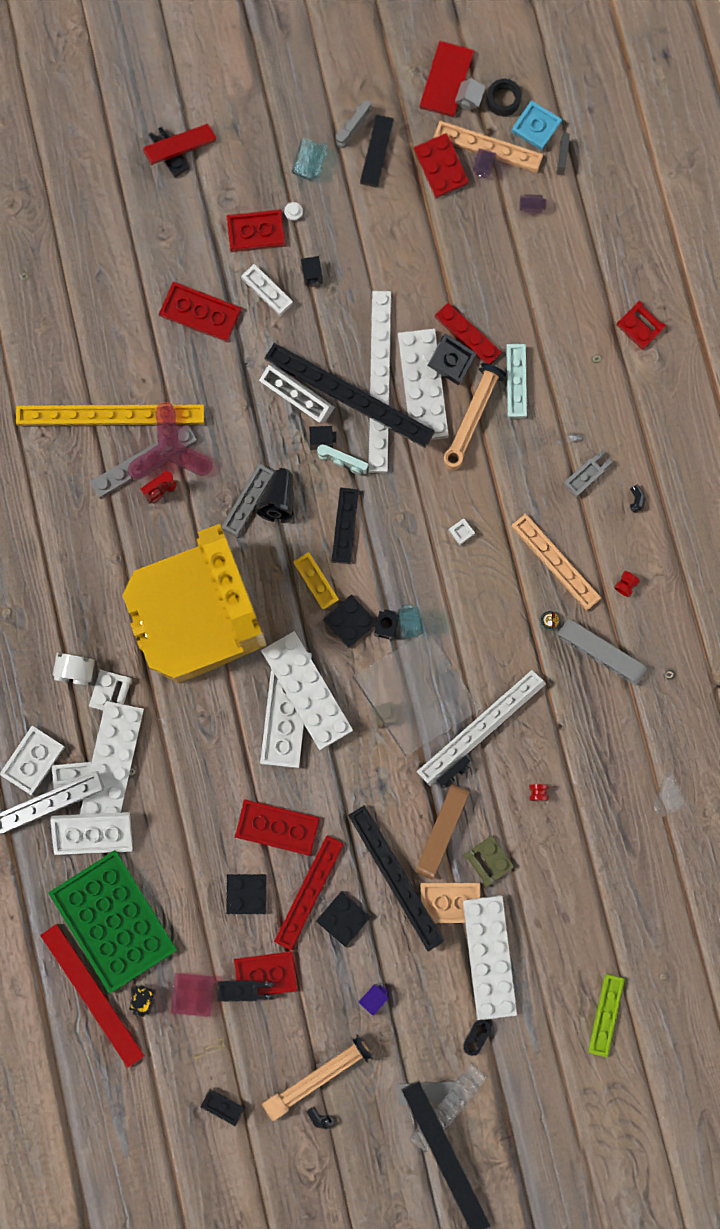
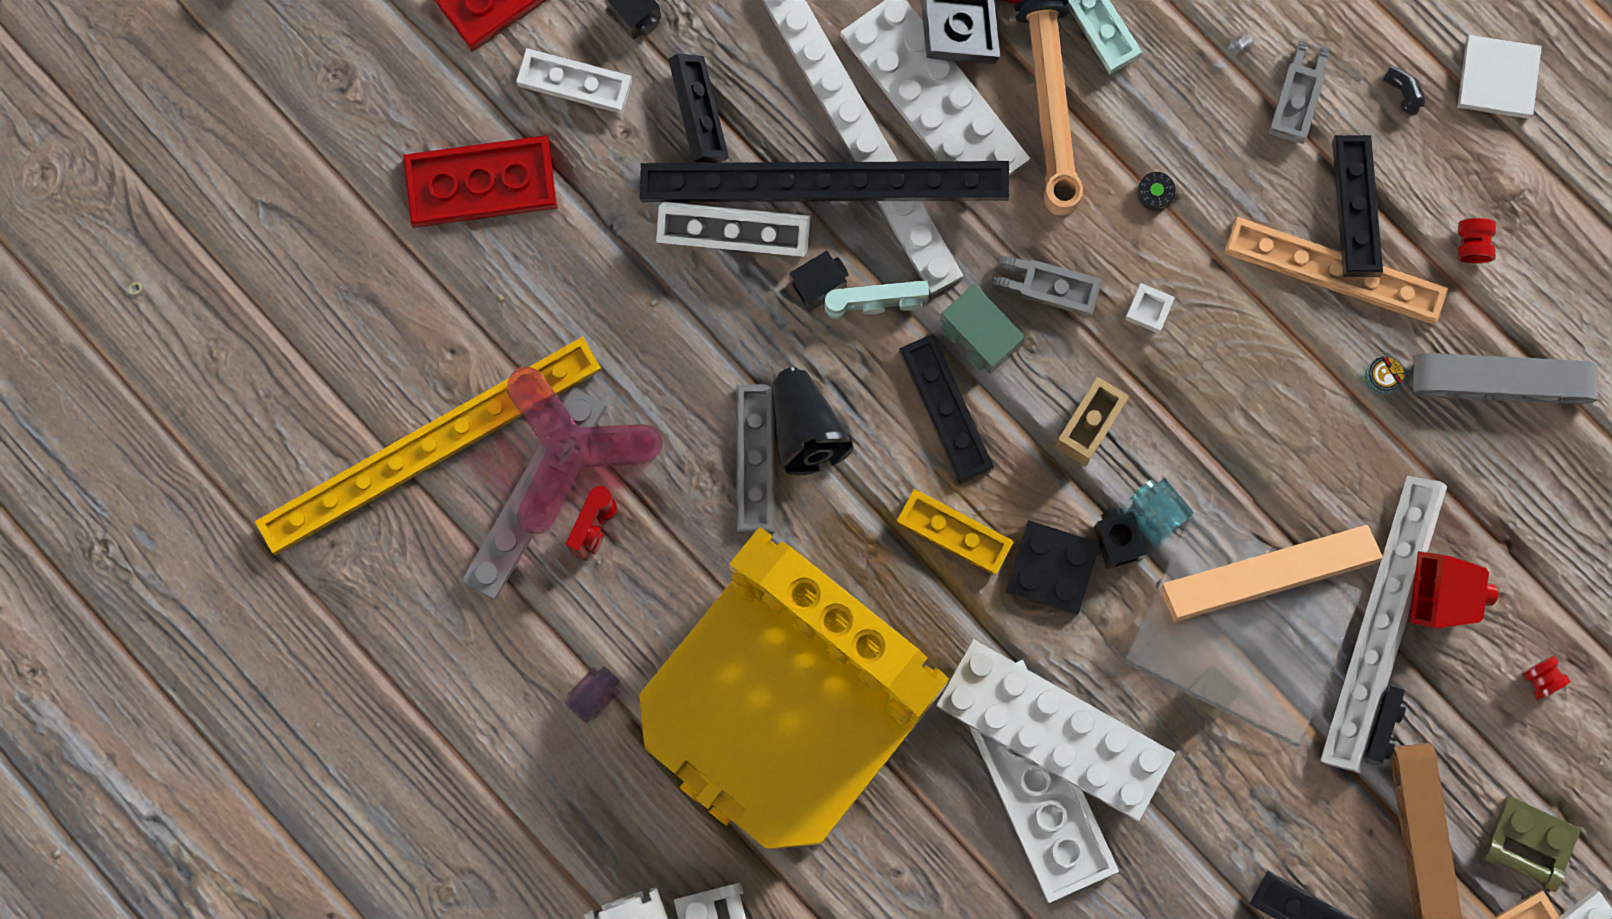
camera: 30 degrees left, 0 degrees up
(117, 562) = (593, 693): none -> clear purple brick
(314, 332) = (698, 108): none -> black plate
(380, 499) = (981, 330): none -> sand green brick
(404, 566) = (1091, 421): none -> tan brick
(423, 497) = (1050, 285): none -> light grey hinge
(443, 677) = (1270, 573): none -> light nougat tile
(496, 482) = (1156, 191): none -> black tile
(517, 730) = (1449, 591): none -> red torso
(582, 538) = (1357, 206): none -> black tile
(684, 517) = (1499, 76): none -> white tile

